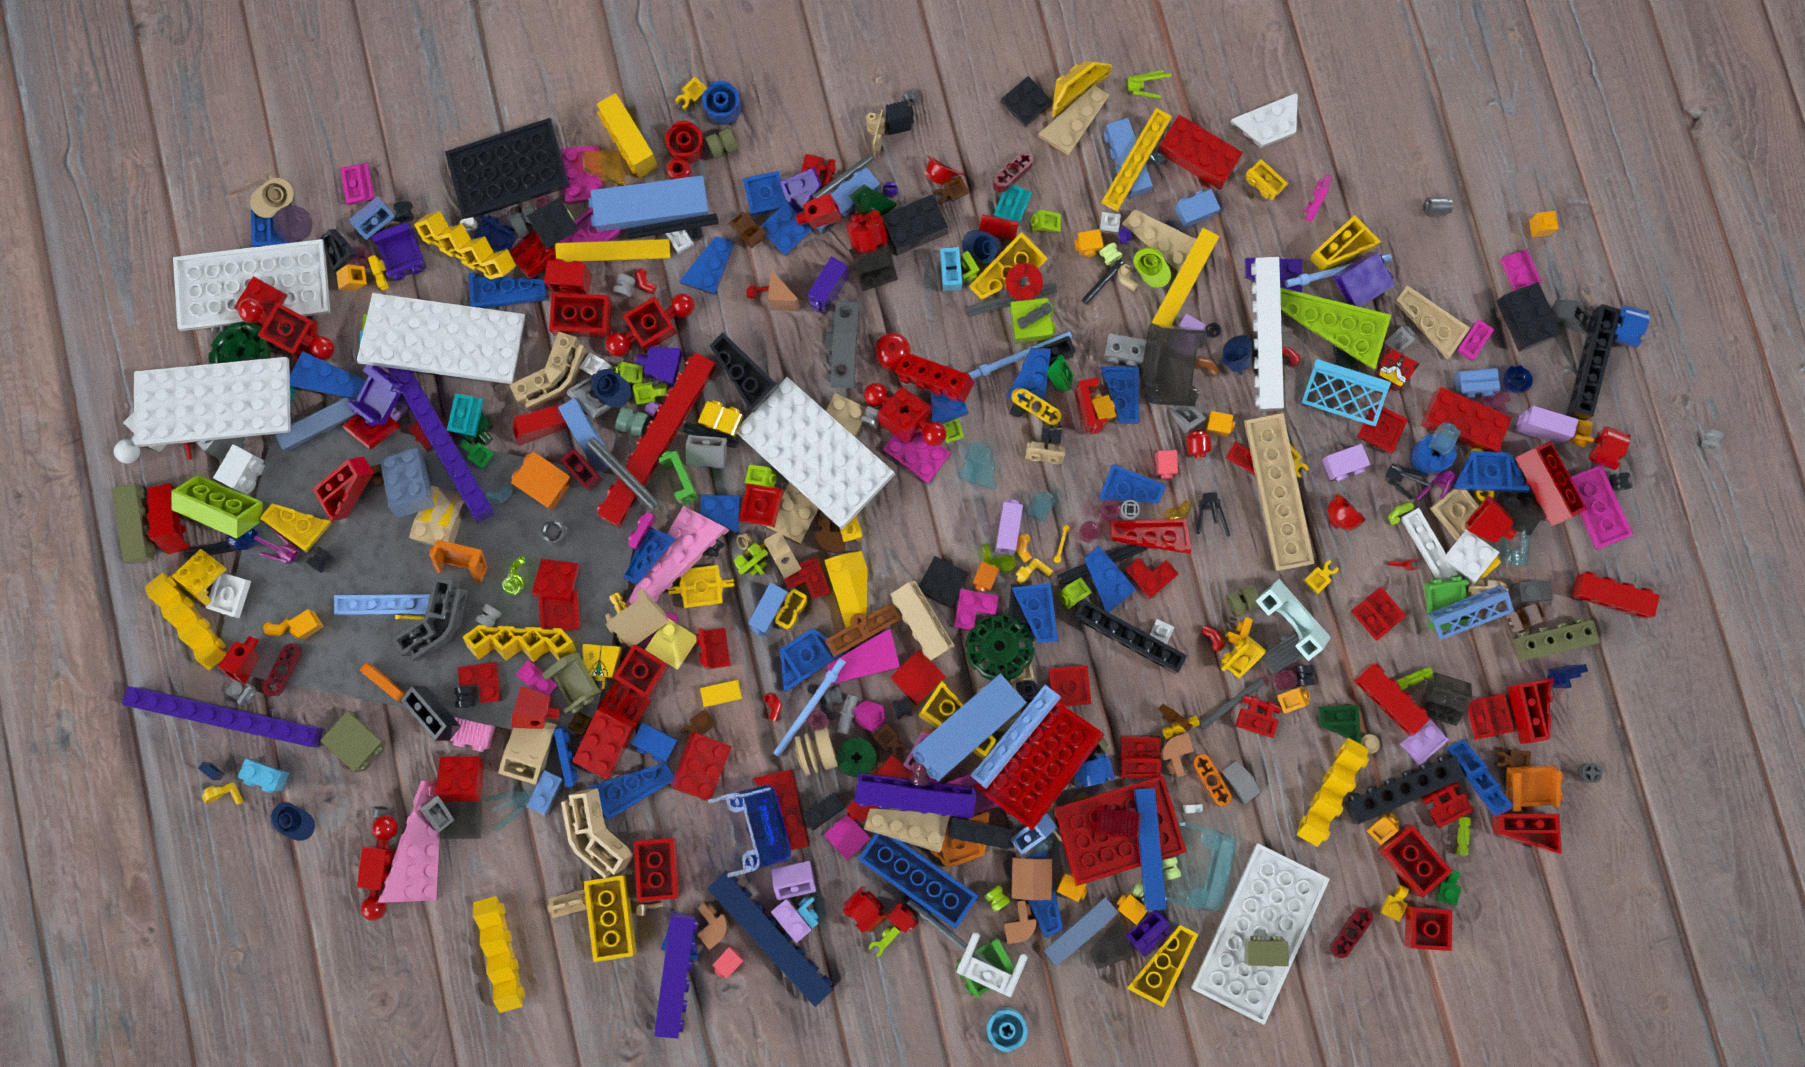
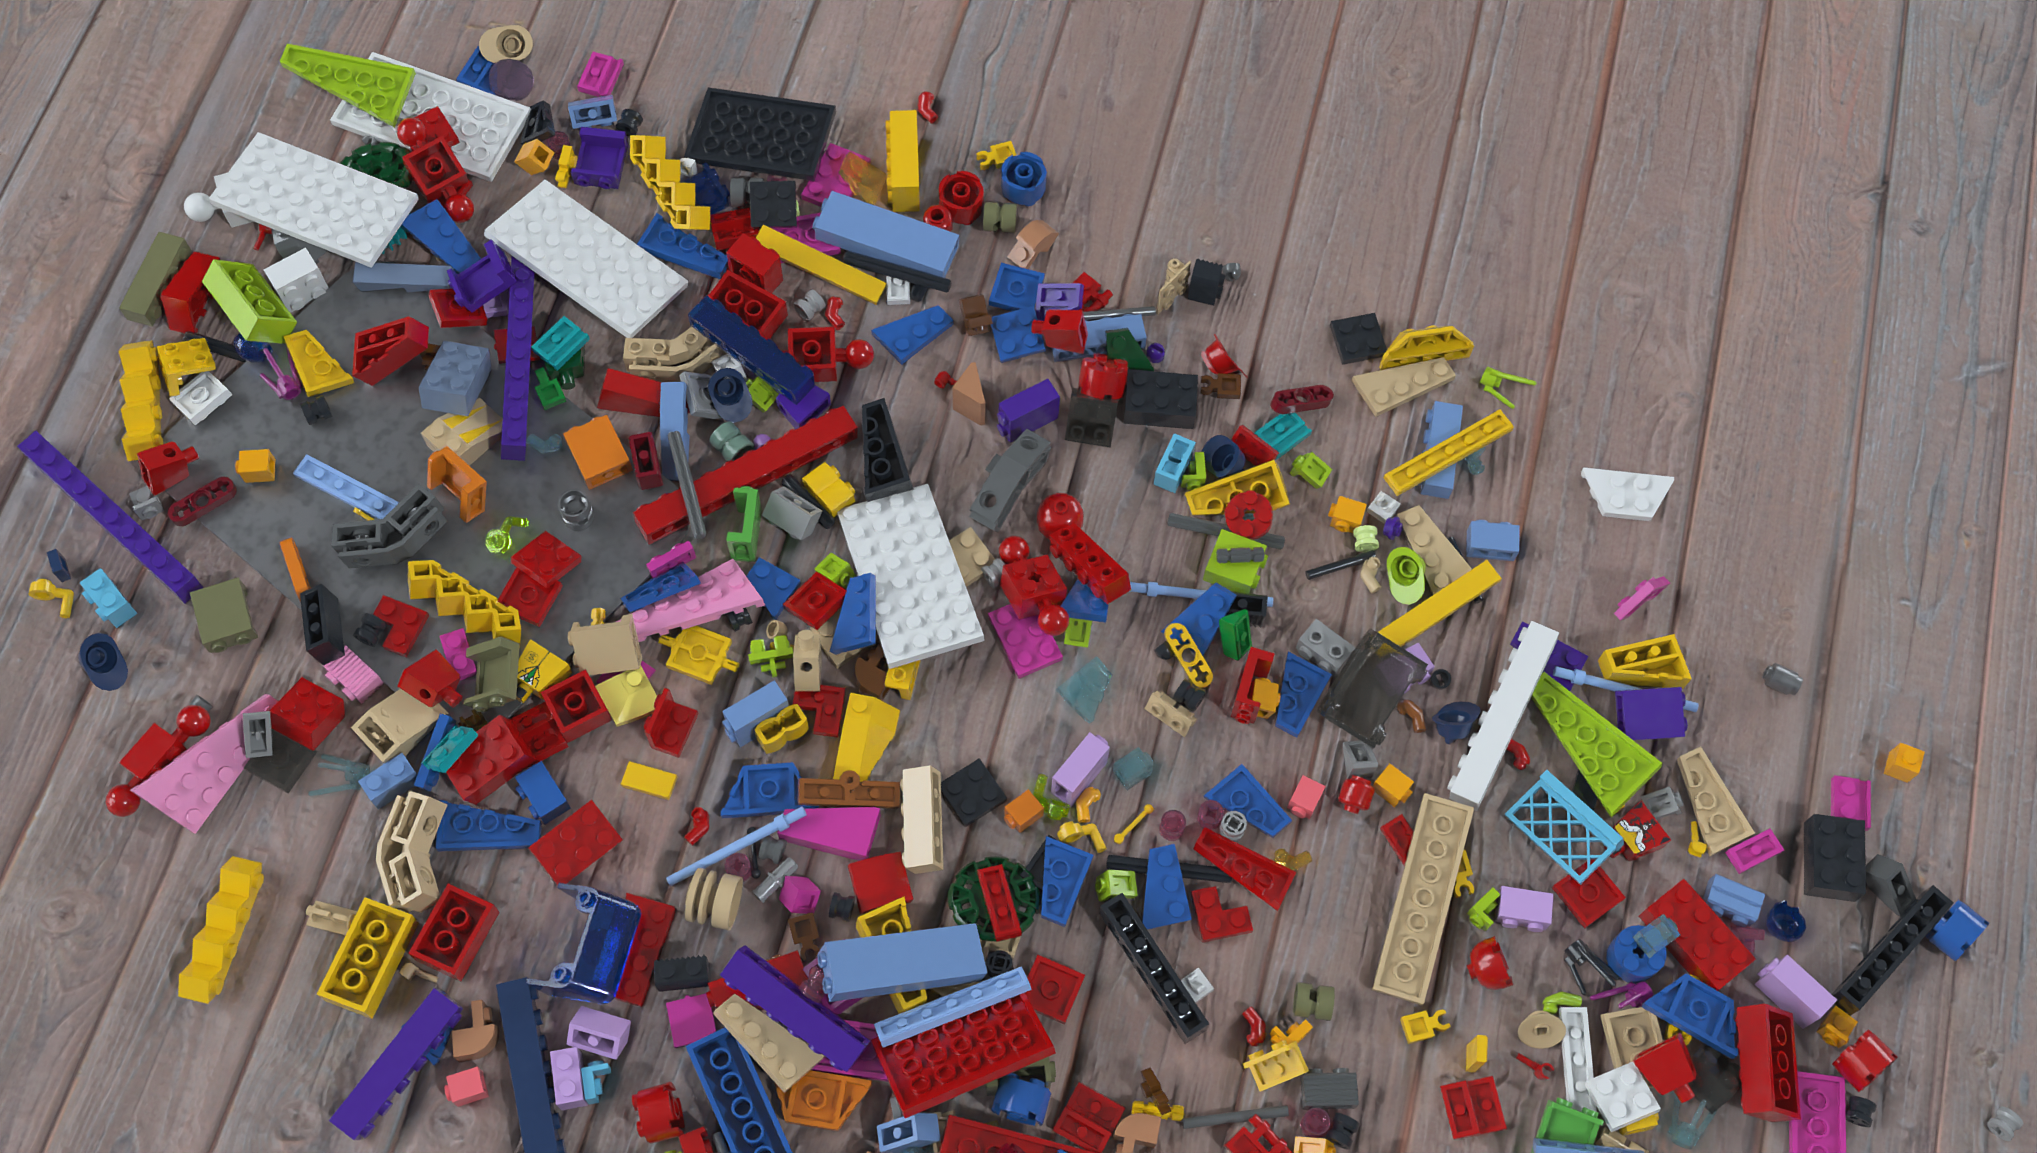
camera: 25 degrees right, 15 degrees down
(181, 287) = (365, 83): none -> lime wing
(275, 629) = (222, 456): light orange arm -> none
(488, 616) = (451, 559): light grey wheel -> none
(577, 751) = (449, 749): none -> teal plate
(607, 347) = (751, 349): none -> clear blue brick
(614, 82) = (924, 102): none -> red arm
(646, 392) = (766, 422): lime plate -> none
(700, 723) = (607, 800): reddish brown plate -> none
(756, 150) = (1032, 239): none -> nougat brick
(797, 502) = (857, 617): none -> blue wing
(848, 750) = (754, 918): dark green brick -> none
(973, 602) = (988, 834): dark pink plate -> none
(979, 833) = (845, 1096): black brick -> none
(1006, 650) = (999, 903): none -> red tile
(1200, 152) = (1527, 483): red brick -> none
(1211, 502) = (1335, 870): black plant -> none
(1265, 180) = (1589, 550): yellow bracket -> none
(1310, 633) = (1374, 1084): light aqua arch -> none
(1319, 474) = (1486, 904): none -> lime bracket
(1365, 579) = (1476, 1053): none -> yellow tile
(1397, 538) = (1541, 1030): none -> tan piece
(1435, 358) = (1695, 847): none -> yellow hand

